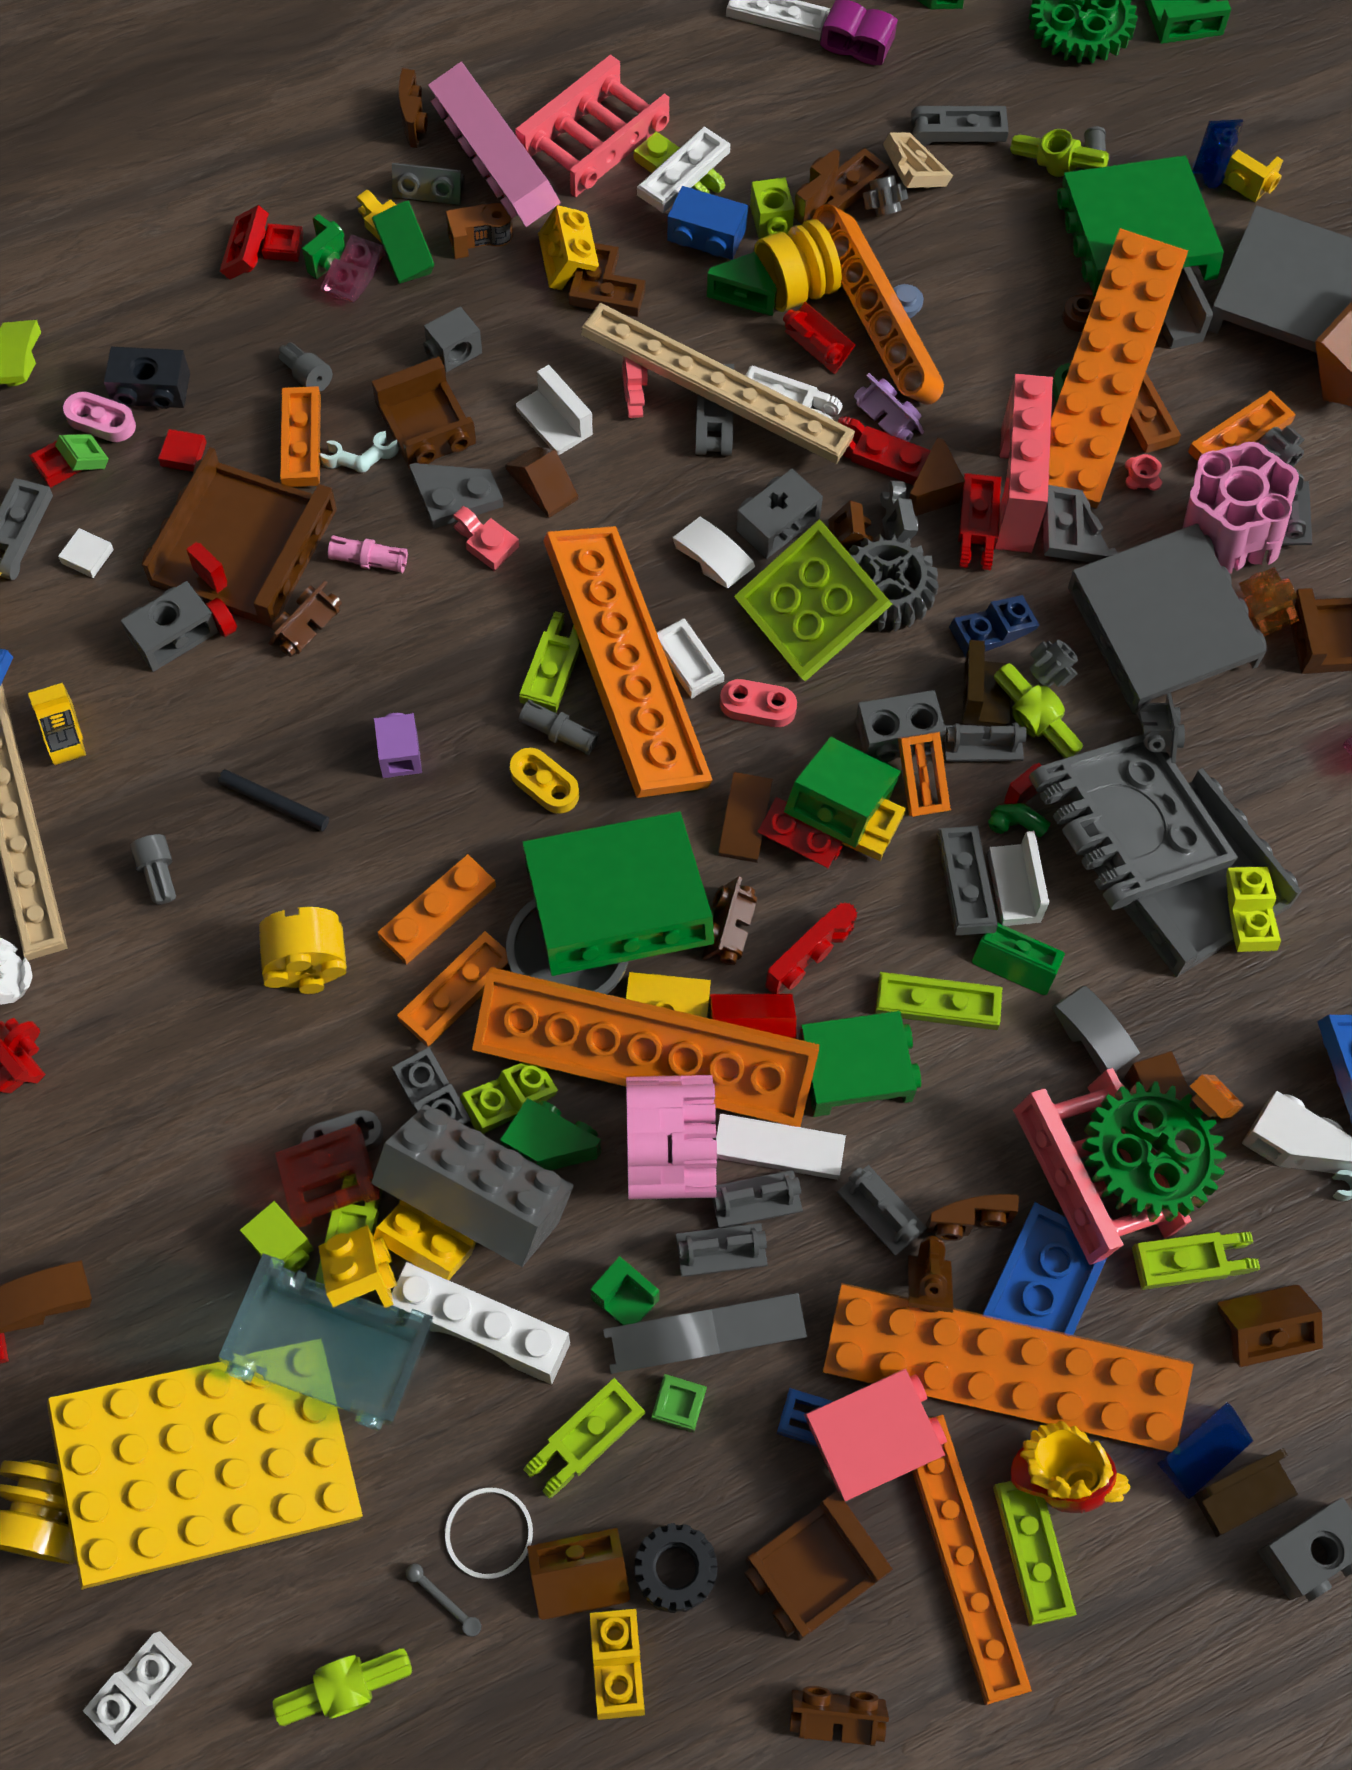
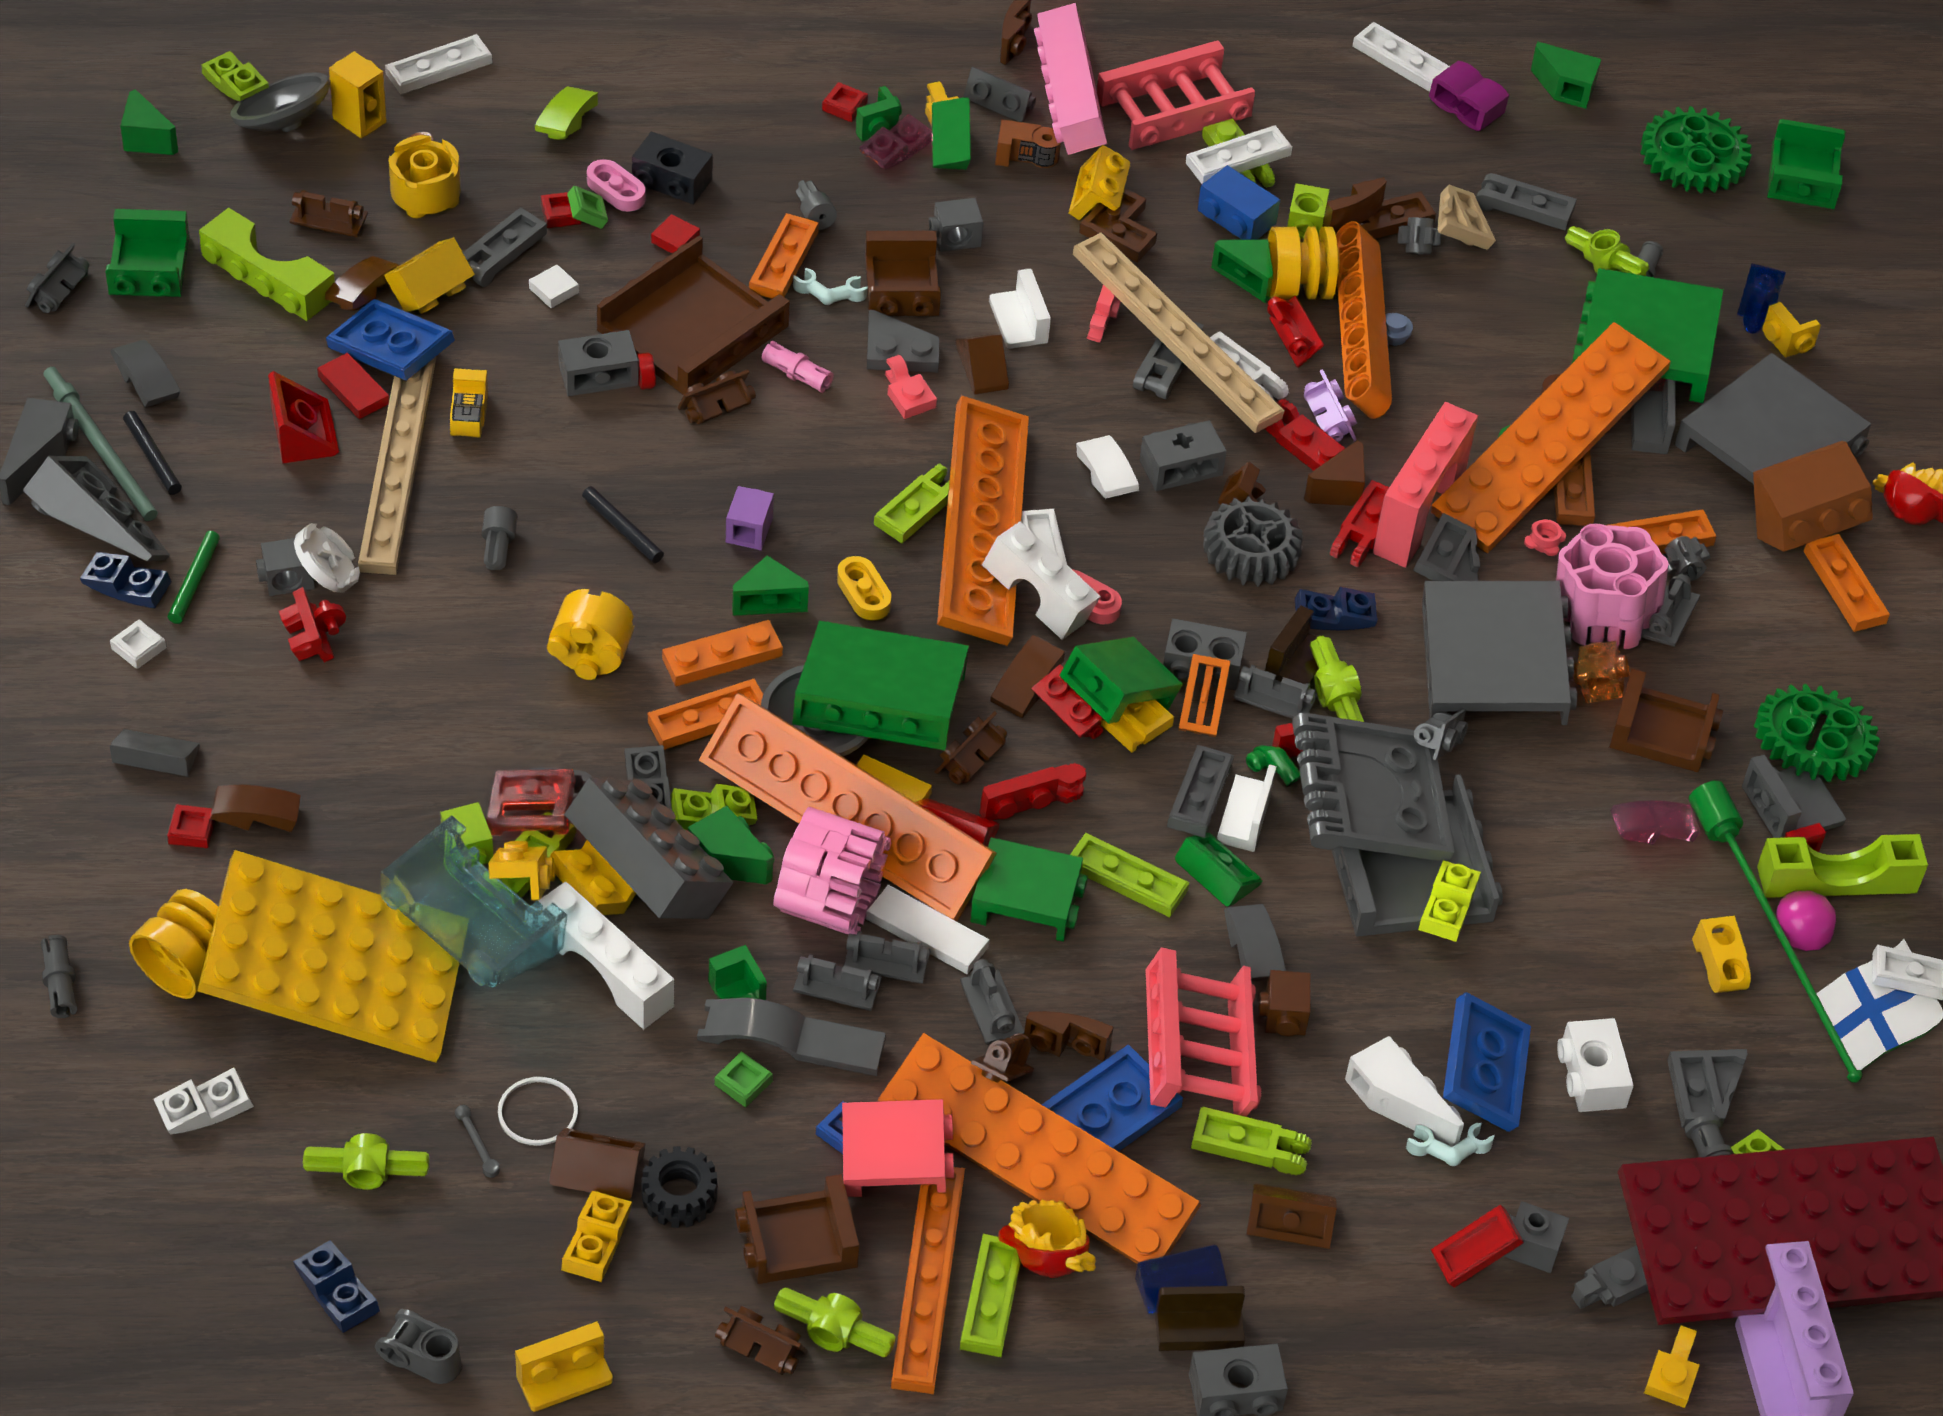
camera: 20 degrees right, 15 degrees down
(207, 567) = (651, 326): red tile -> none
(244, 242) = (813, 85): red plate -> none
(455, 820) = (769, 590): none -> green slope
(558, 727) = (897, 553): dark grey pin -> none
(587, 1435) = (651, 1070): lime hinge -> none
(695, 693) = (1063, 593): none -> white arch
(812, 600) = (1173, 528): lime plate -> none
(899, 513) = (1292, 495): dark grey plate -> none
(902, 1662) = (834, 1322): none -> lime axle
(1053, 663) = (1371, 653): dark grey gear -> none
(1135, 1181) = (1247, 1031): green gear -> none
(1215, 1097) = (1326, 1013): orange plate -> none

